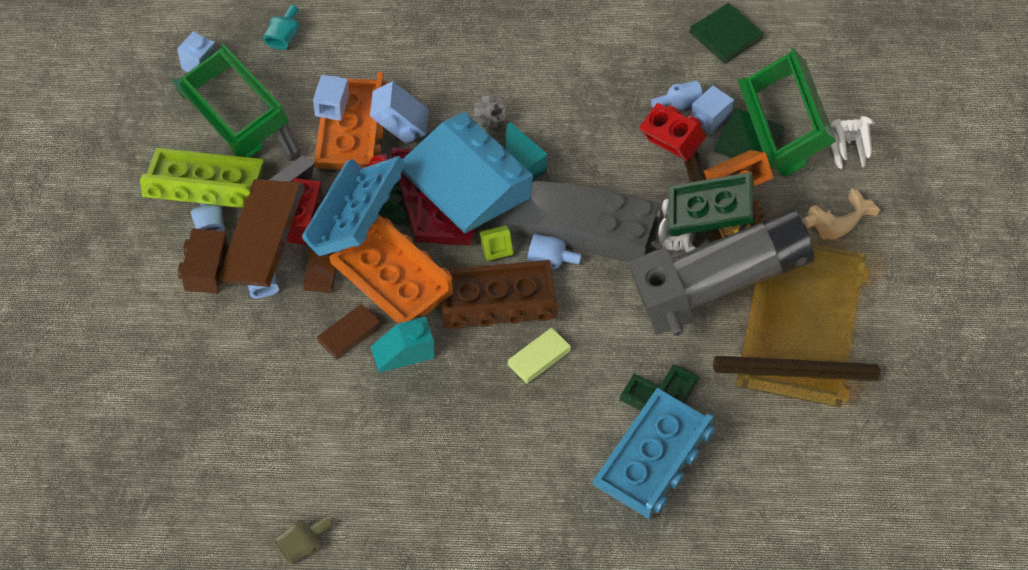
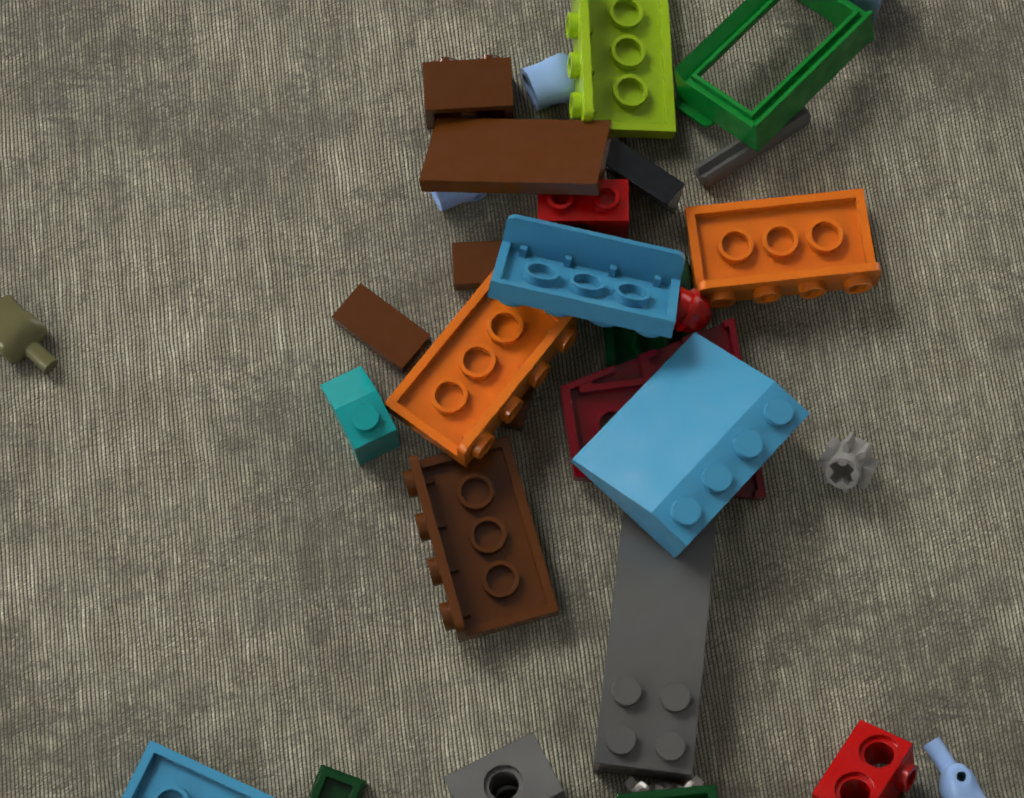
camera: 85 degrees right, 15 degrees up
(282, 29) = (957, 102): teal piece -> none
(331, 97) = (809, 201): light blue brick -> none
(399, 112) = (799, 313): light blue brick -> none
(496, 243) = (581, 519): lime tile -> none
(525, 151) = (764, 530): teal slope -> none
(539, 355) = (381, 624): yellowish green tile -> none
(551, 249) = (585, 611): light blue piece -> none

